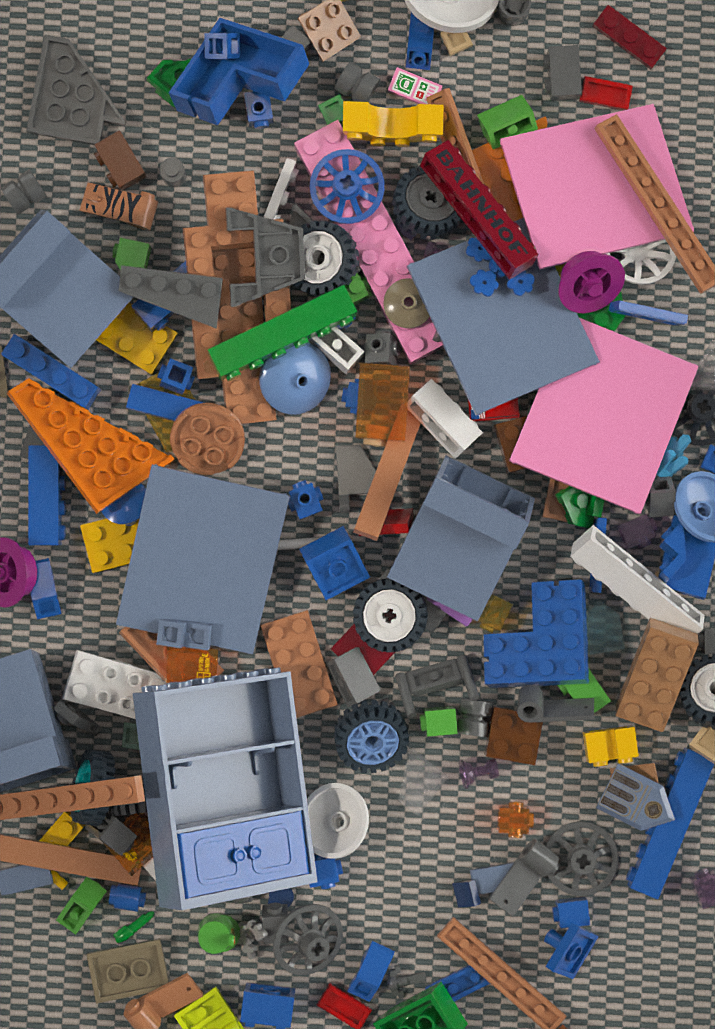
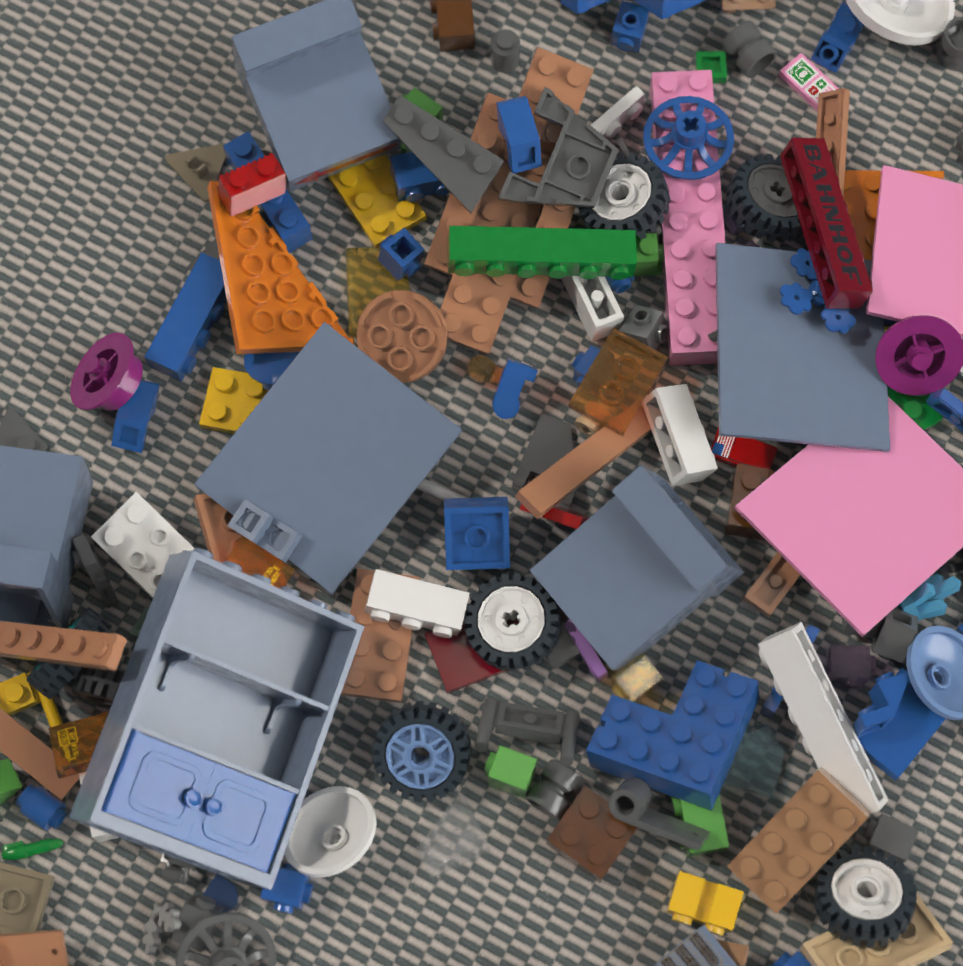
camera: 30 degrees right, 15 degrees down
(43, 381) = (252, 184): none -> red brick
(113, 834) = (64, 718): dark grey slope -> none
(120, 205) = (441, 66): nougat door -> none
(157, 402) = (362, 273): blue tile -> none
(218, 933) = (124, 904): bright green hat -> none
(224, 252) = (520, 133): none -> blue slope
(280, 379) = (512, 319): medium blue dish -> none
(280, 433) = (484, 370): none -> clear orange piece
(304, 440) = (509, 387): none -> blue leg
(305, 509) = (478, 452): blue brick -> none
(316, 635) = (416, 603): none -> white brick
(353, 676) = (435, 674): panel -> none
(392, 125) = (765, 104): yellow brick -> none
(397, 311) = (686, 295): dark tan dish -> none
(456, 42) = (879, 54): tan tile -> none
(469, 773) = (517, 854): clear purple piece -> none
(507, 120) = (899, 151): bright green brick -> none
(514, 819) = (545, 938): clear orange brick -> none
(580, 506) = (795, 601): green plate -> none

